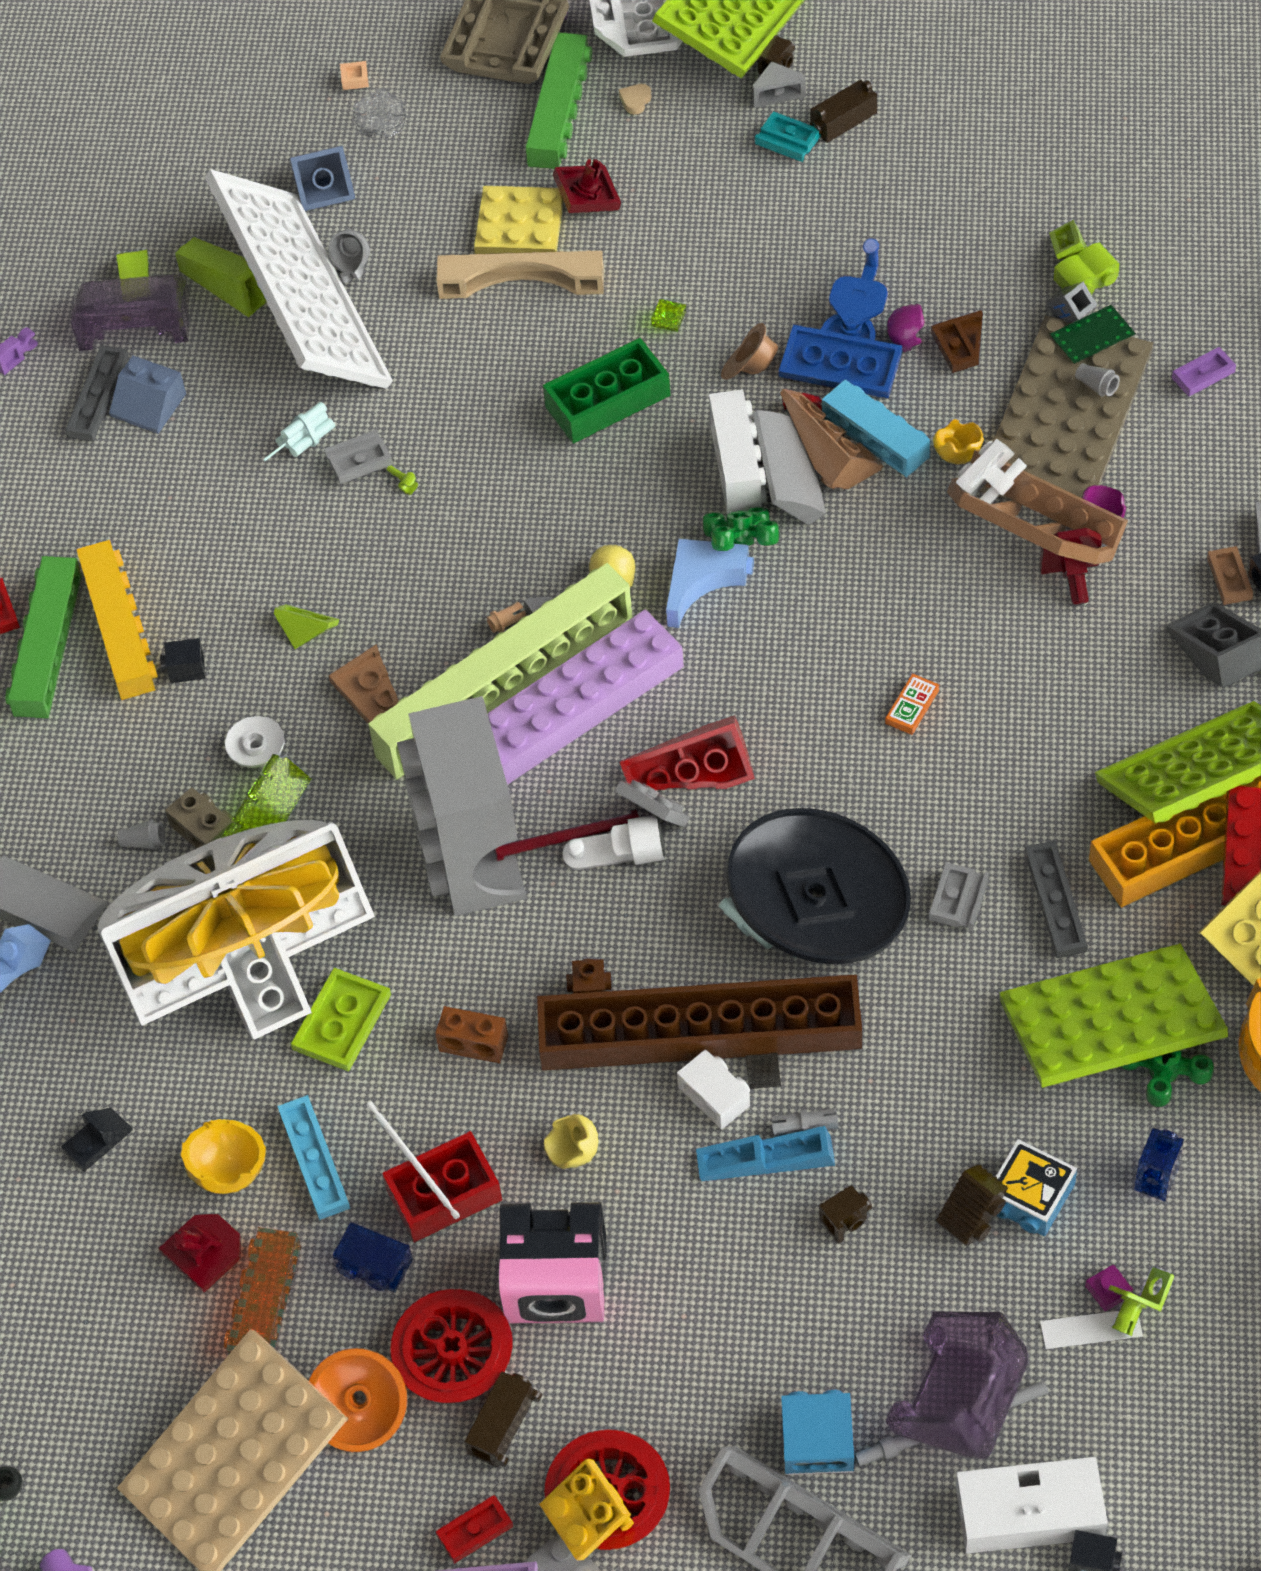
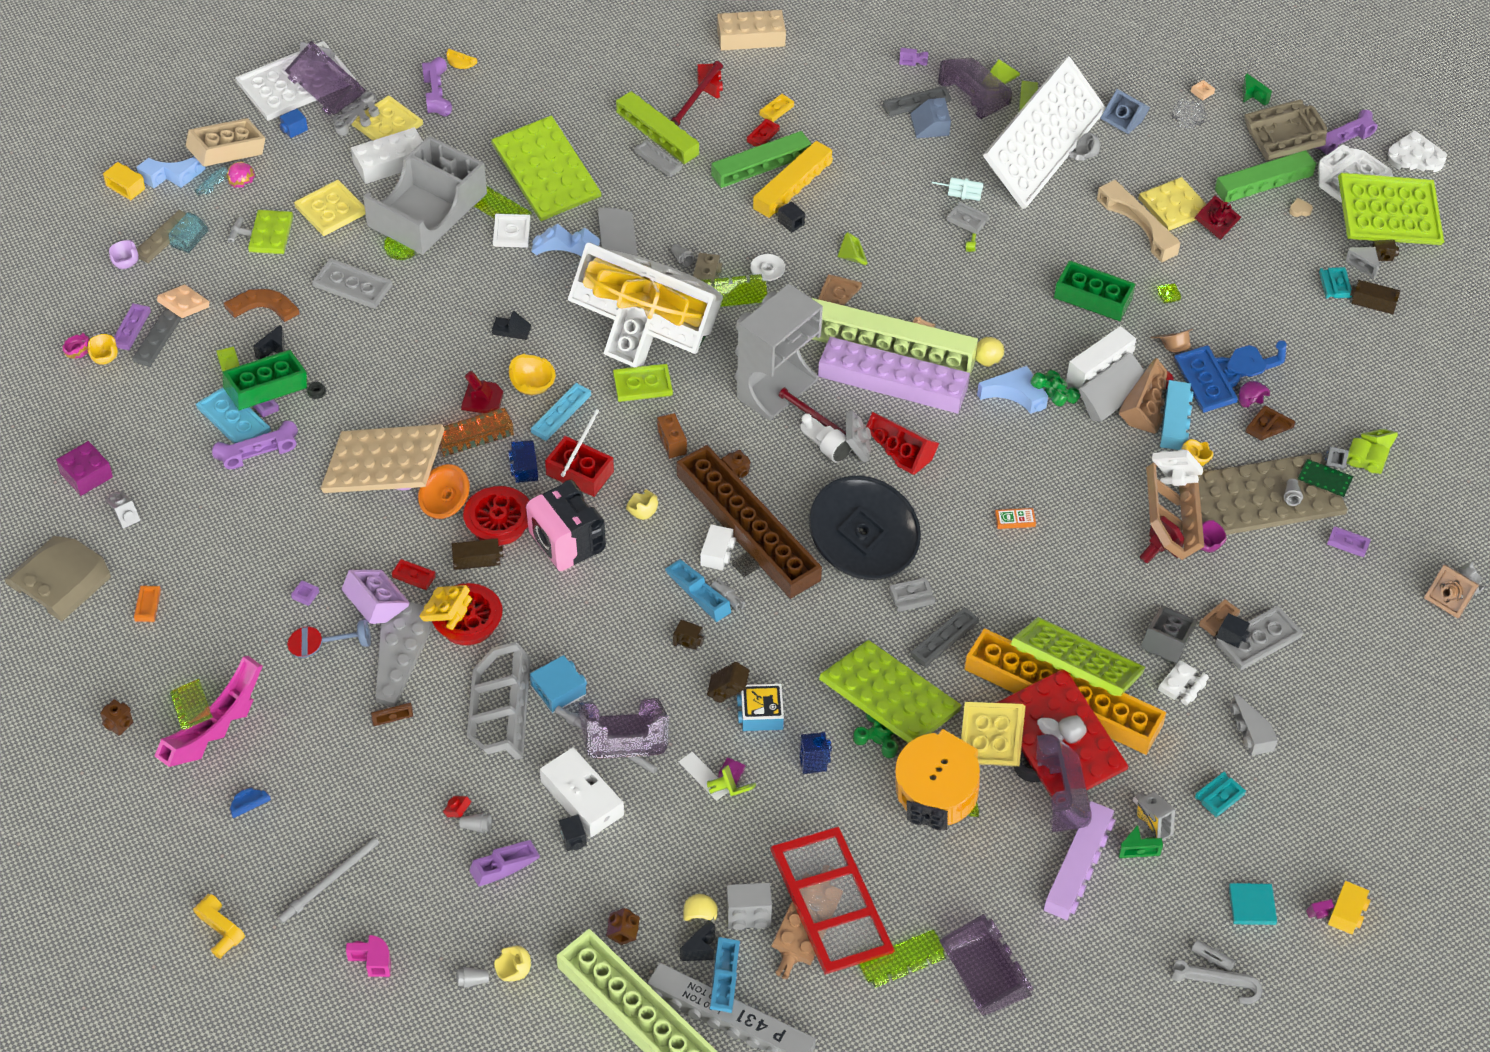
camera: 50 degrees right, 5 degrees down
(397, 22) = (1255, 89): none -> green slope

